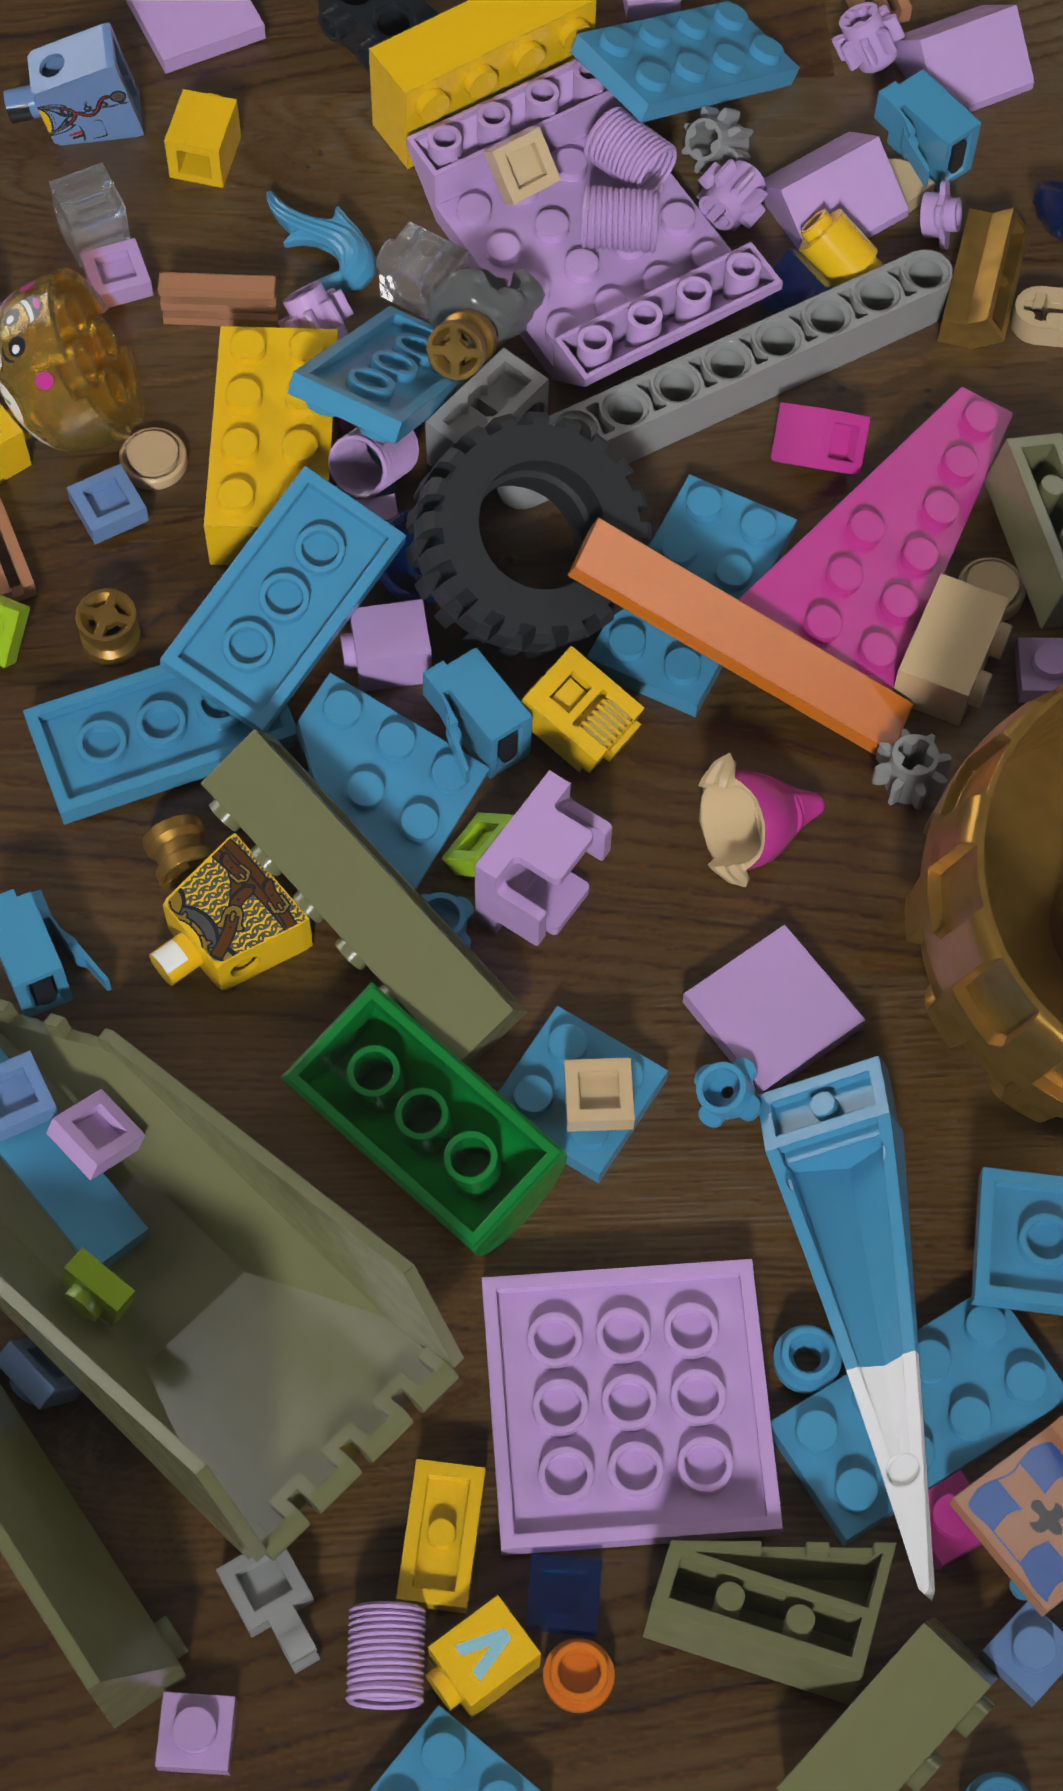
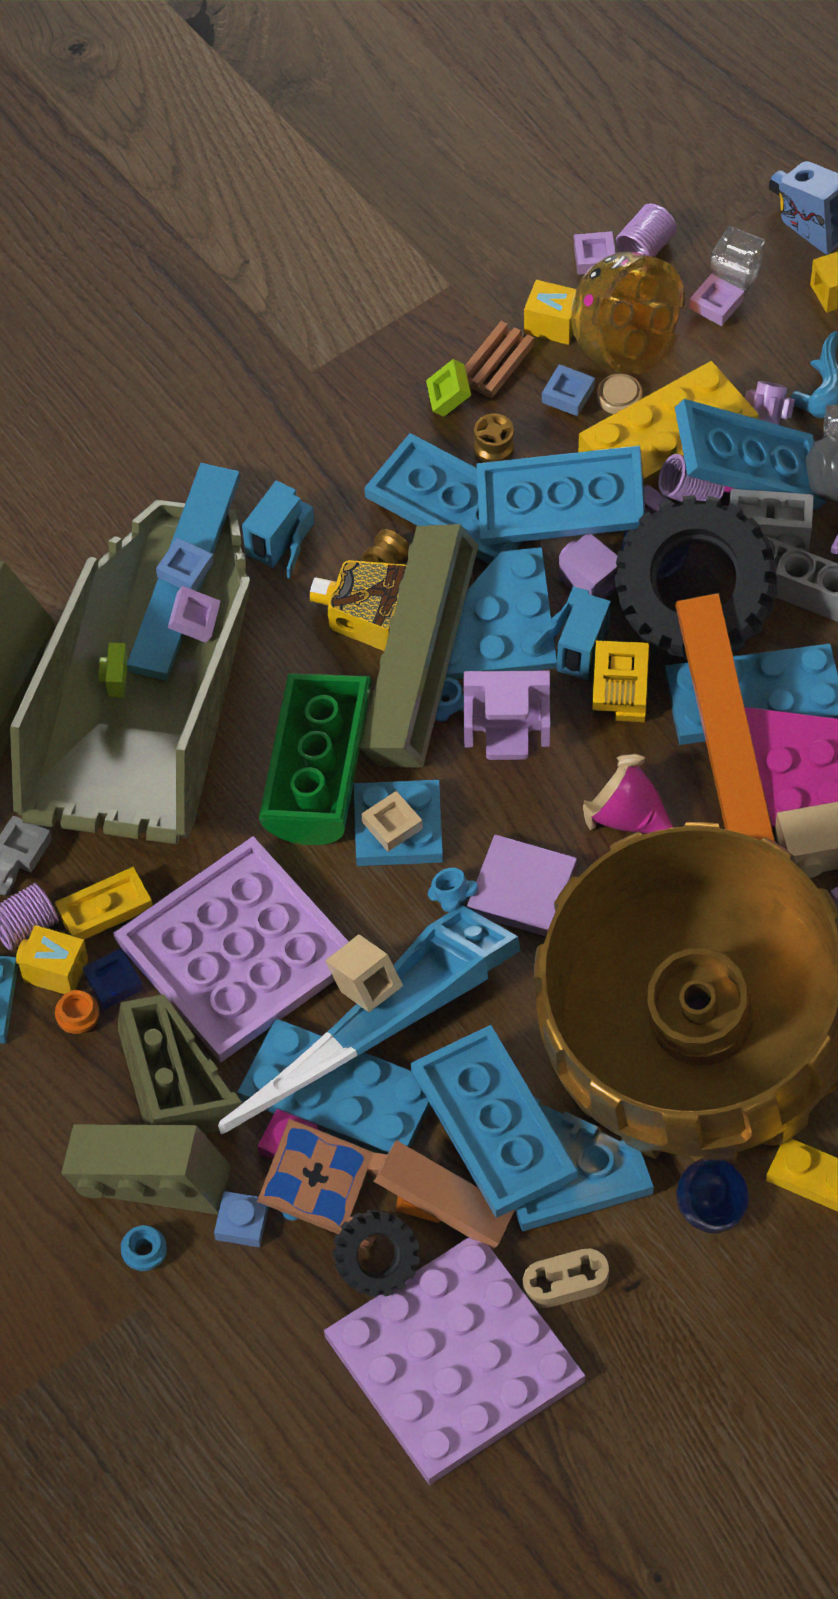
camera: 60 degrees right, 5 degrees down
(218, 299) = (739, 352): nougat tile -> none
(451, 354) = (795, 472): pearl gold wheel -> none
(800, 1269) = (364, 973): none -> tan brick
(812, 1340) = (324, 1007): dark azure plate -> none

